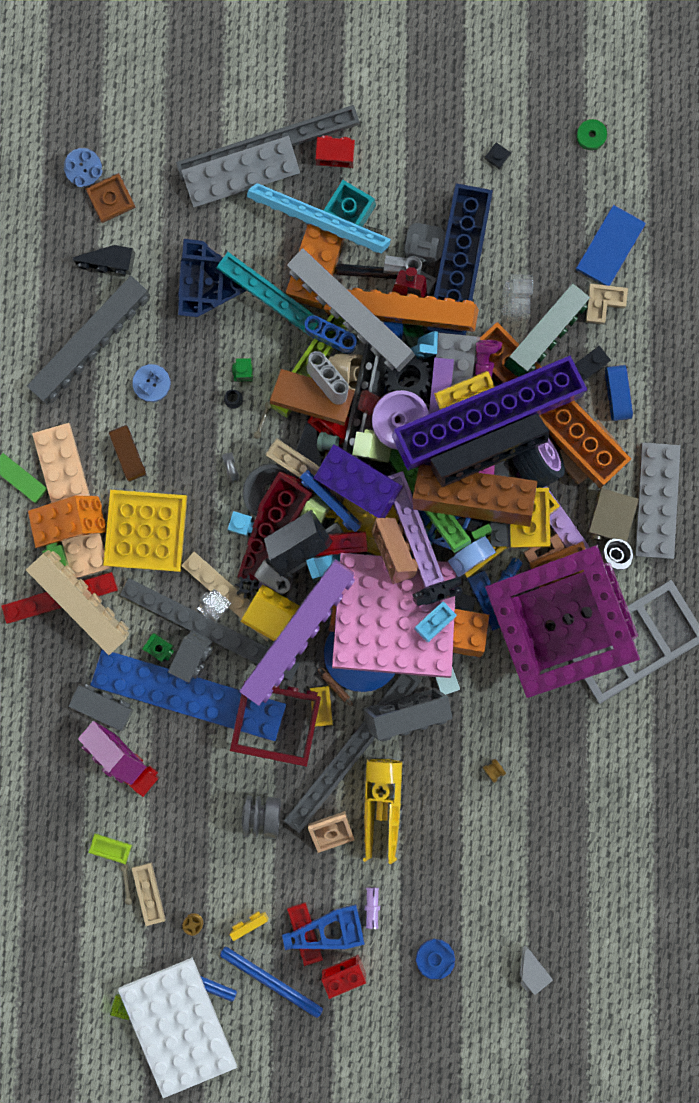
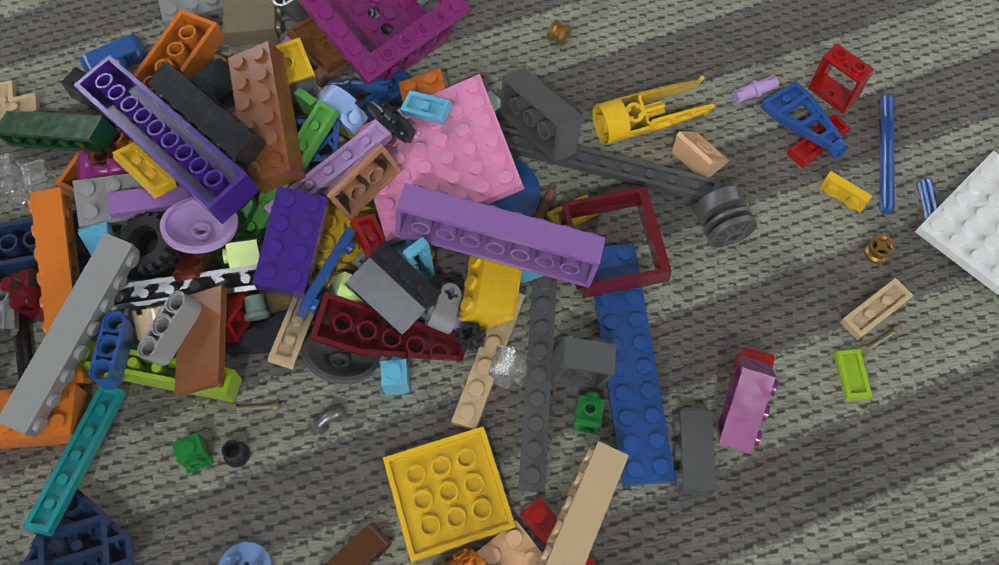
camera: 110 degrees left, 20 degrees down
(435, 959) = (770, 22): blue tile -> none

